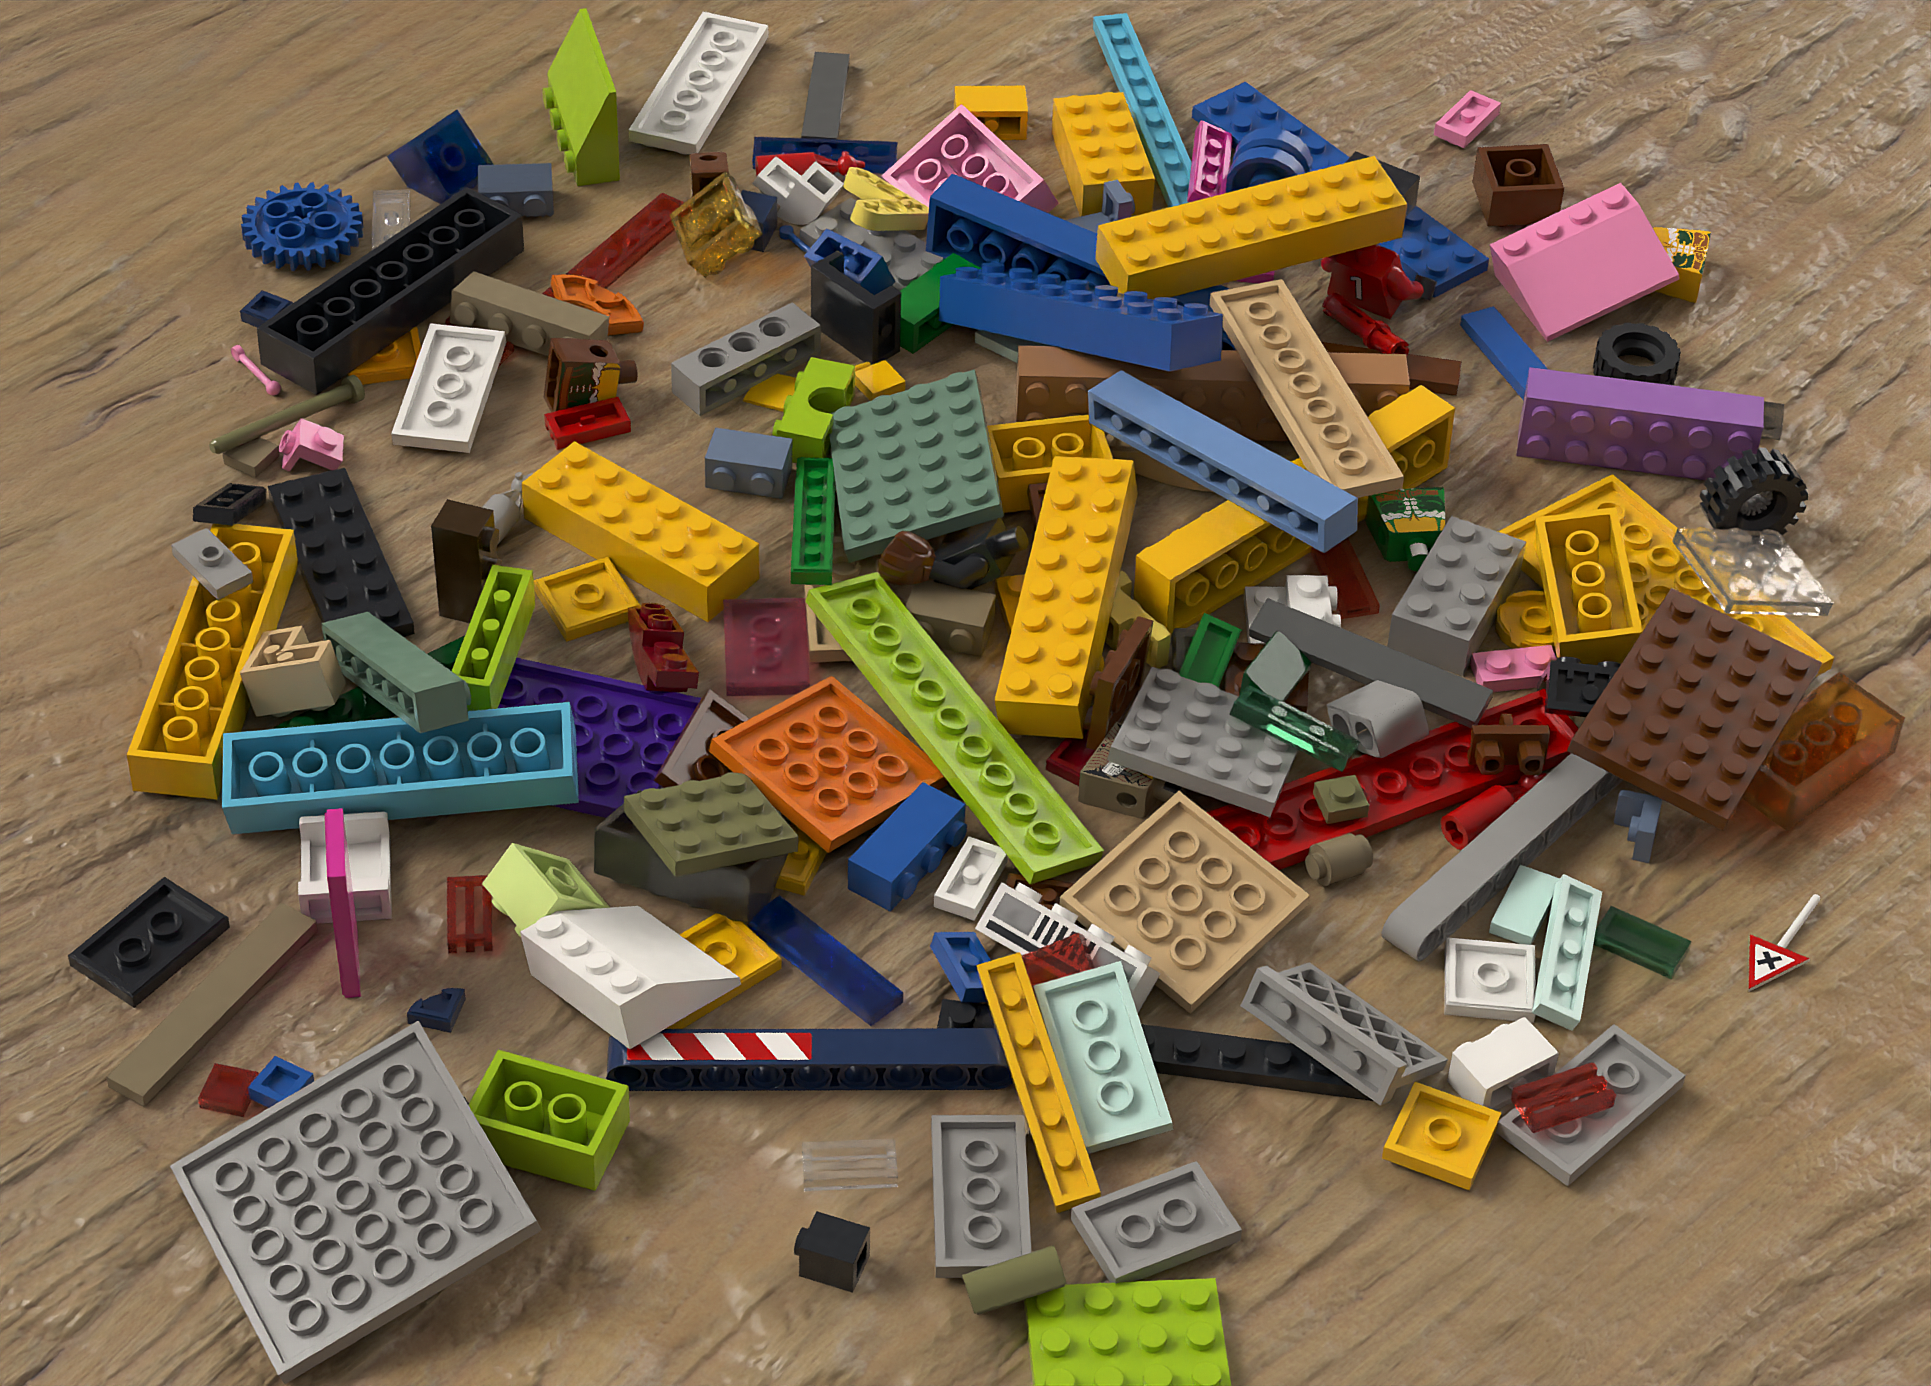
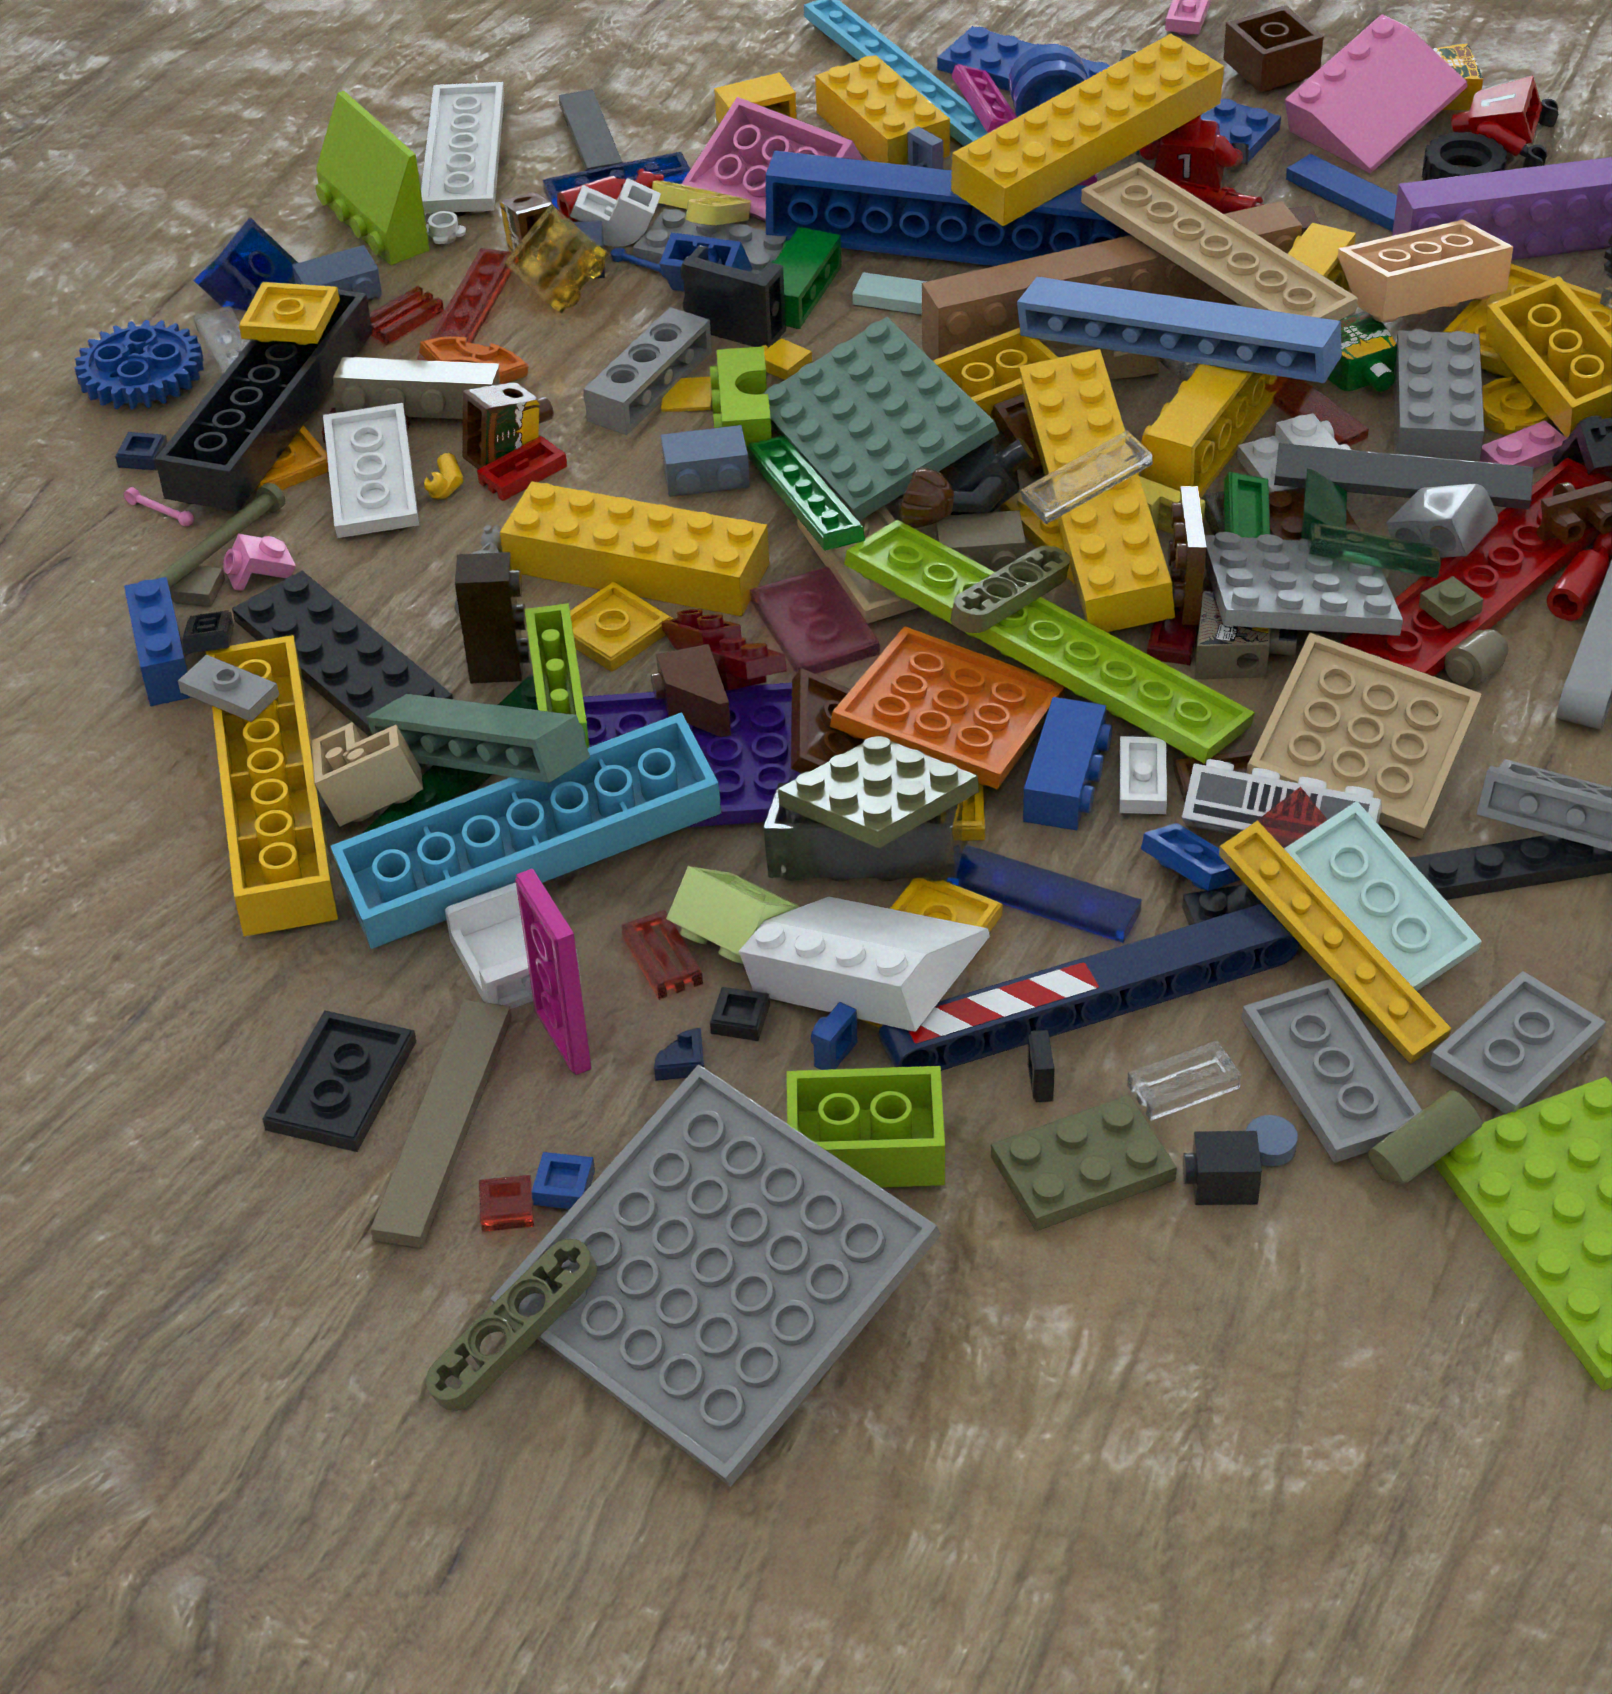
camera: 15 degrees left, 0 degrees up
(175, 1199) = (505, 1318): none -> olive beam
(191, 479) = (157, 639): none -> blue brick
(439, 217) = (289, 313): none -> yellow plate
(506, 987) = (740, 1013): none -> black tile
(519, 415) = (445, 480): none -> yellow arm
(560, 240) = (404, 314): none -> clear red tile
(569, 1033) = (834, 1037): none -> blue plate
(610, 679) = (693, 686): none -> reddish brown slope
(639, 162) = (444, 227): none -> white plate
(722, 1208) = (1083, 1162): none -> olive plate
(728, 1113) = (1040, 1066): none -> black tile
(892, 1241) = (1275, 1138): none -> sand blue tile
(894, 681) = (1041, 568): none -> olive beam
(1051, 583) = (1086, 477): none -> clear tile
(1081, 316) = (968, 242): blue brick -> none
(1508, 462) = (1426, 269): none -> light nougat slope
(1705, 320) = (1510, 117): none -> red torso

